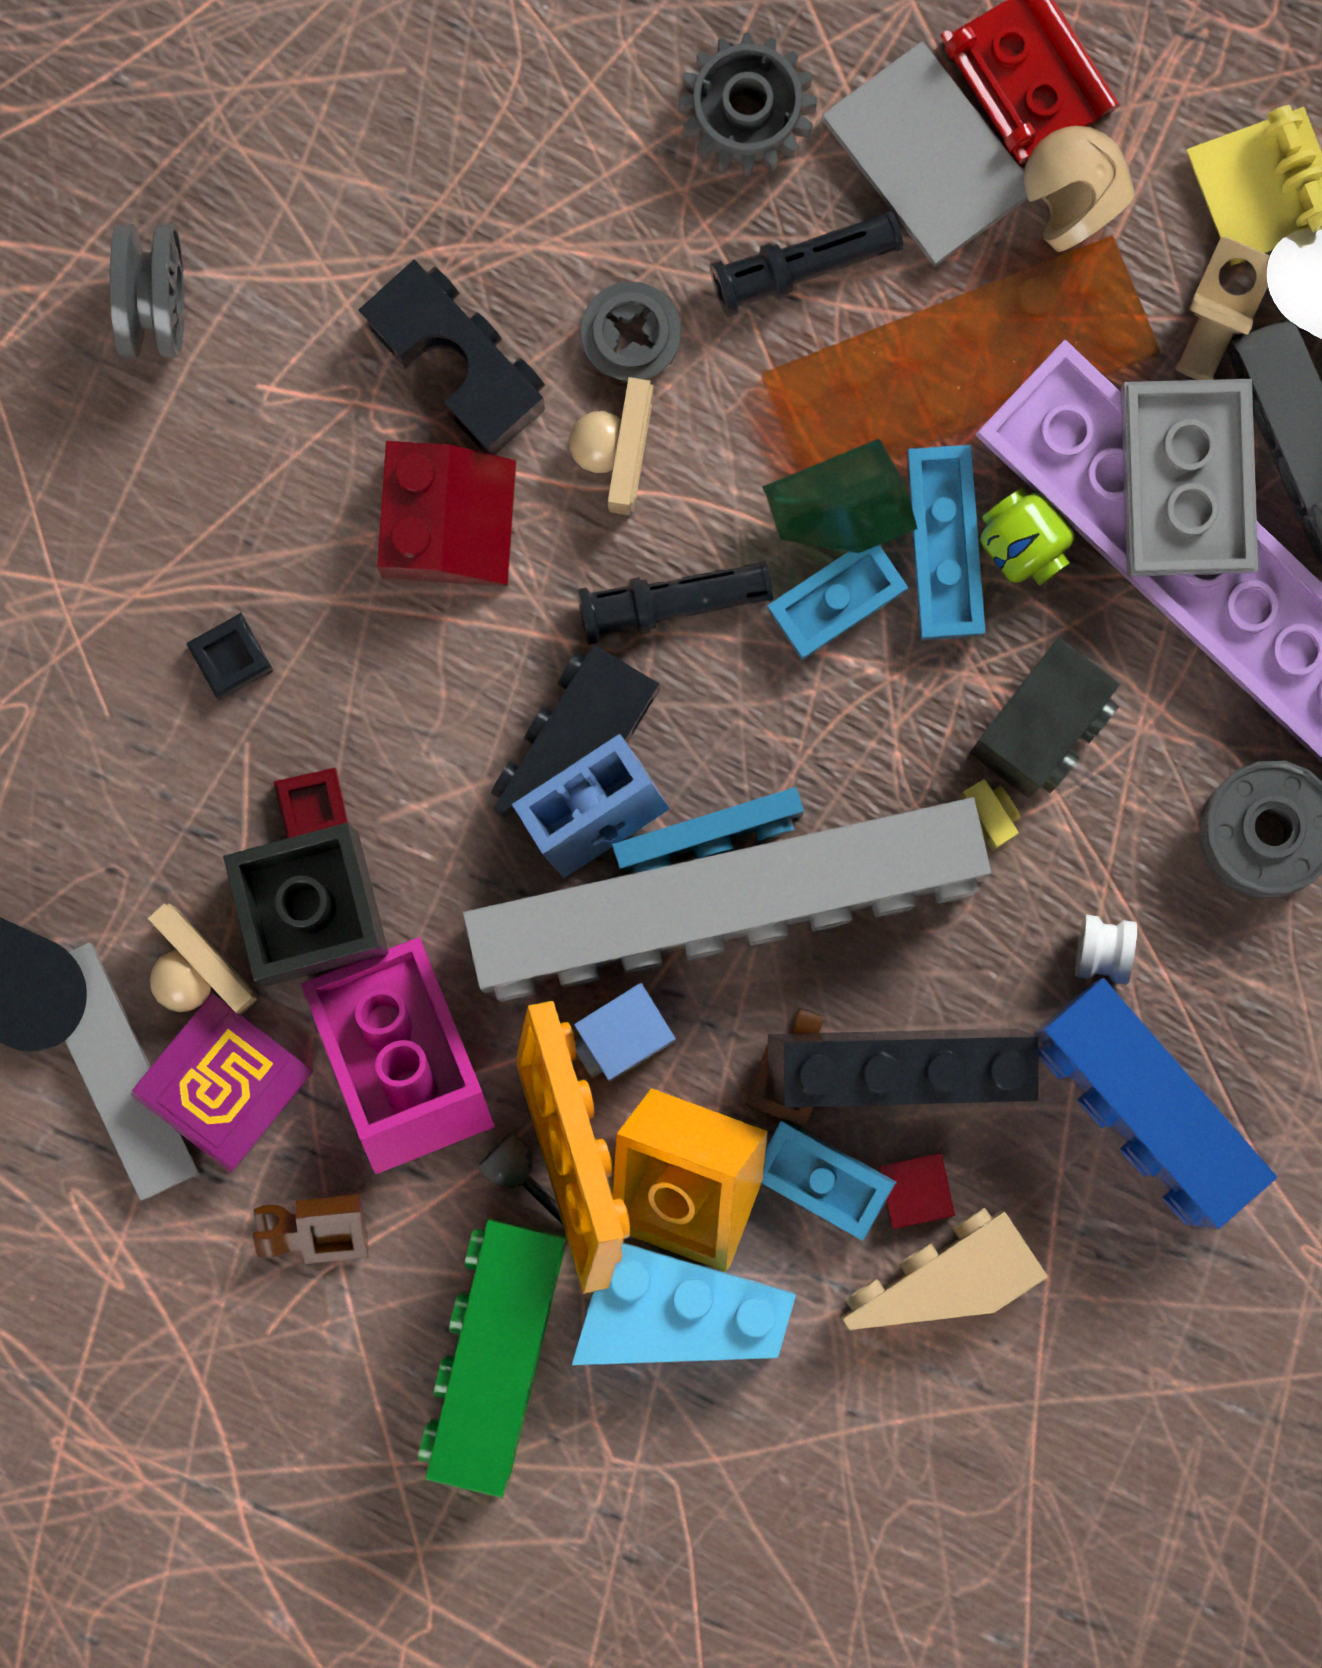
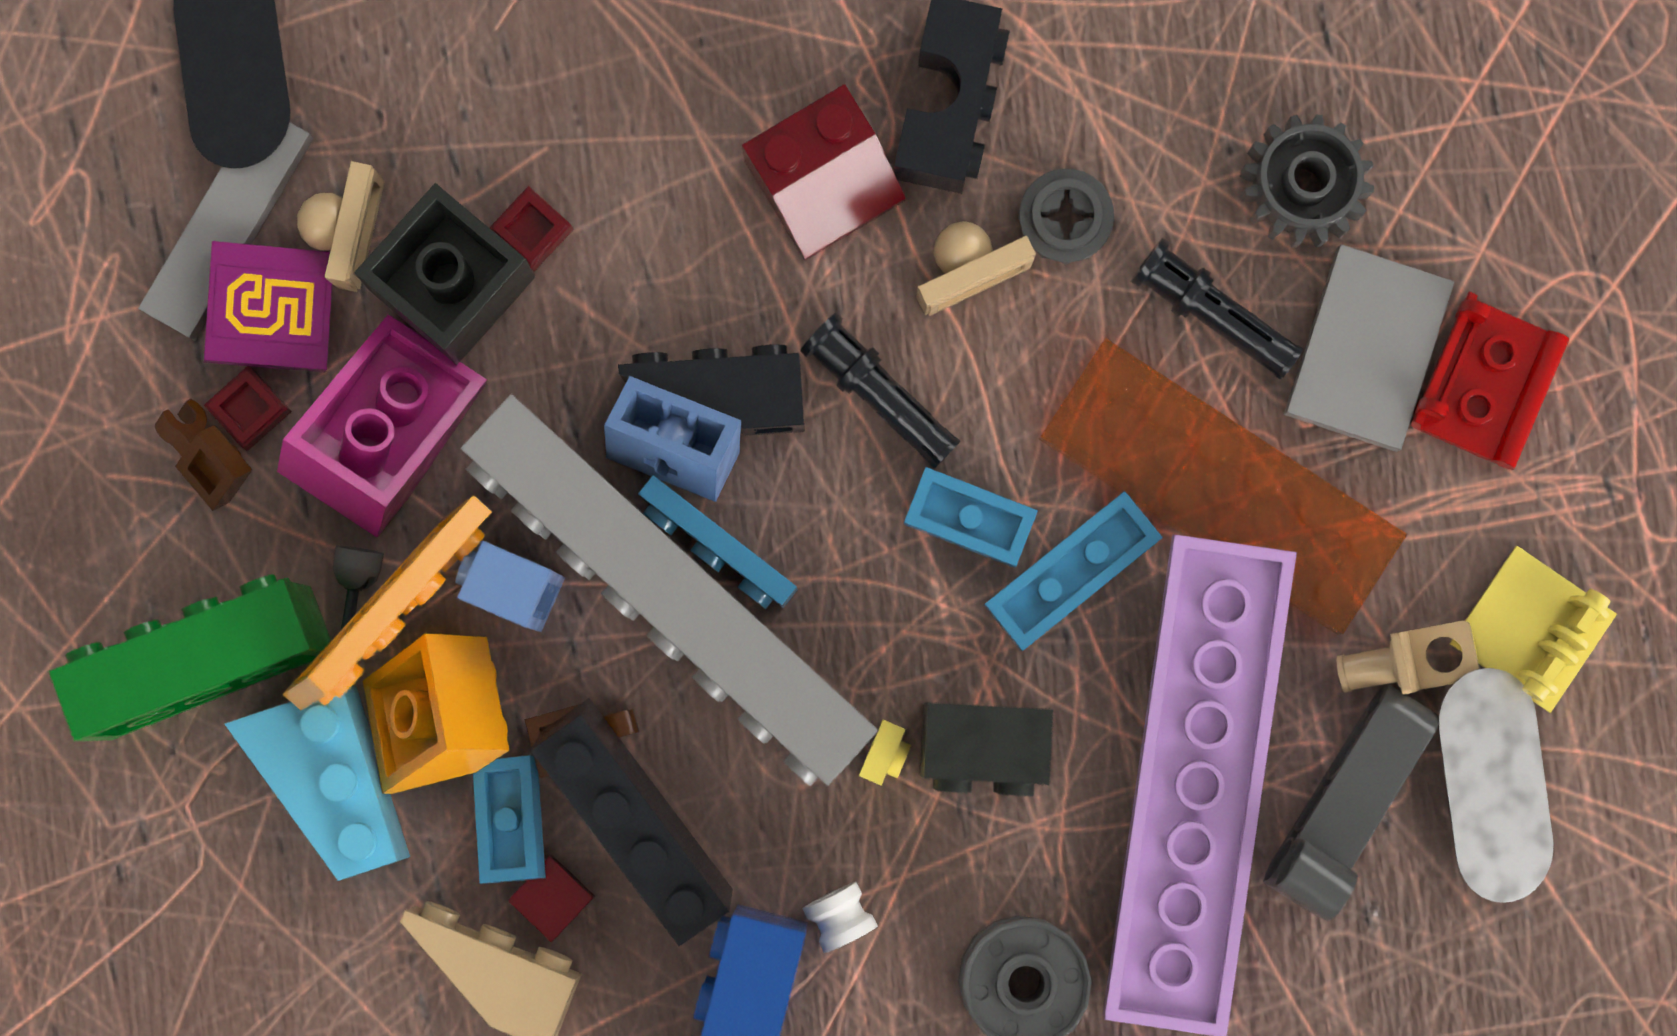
camera: 55 degrees right, 0 degrees up
(229, 656) = (602, 87): black tile -> none
(296, 1165) = (247, 408): none -> dark red tile
(843, 502) = (1047, 469): clear green slope -> none
(1027, 537) = (1120, 631): lime head -> none
(1080, 180) = (1432, 480): tan helmet -> none
(1189, 477) = (1256, 726): light grey tile -> none

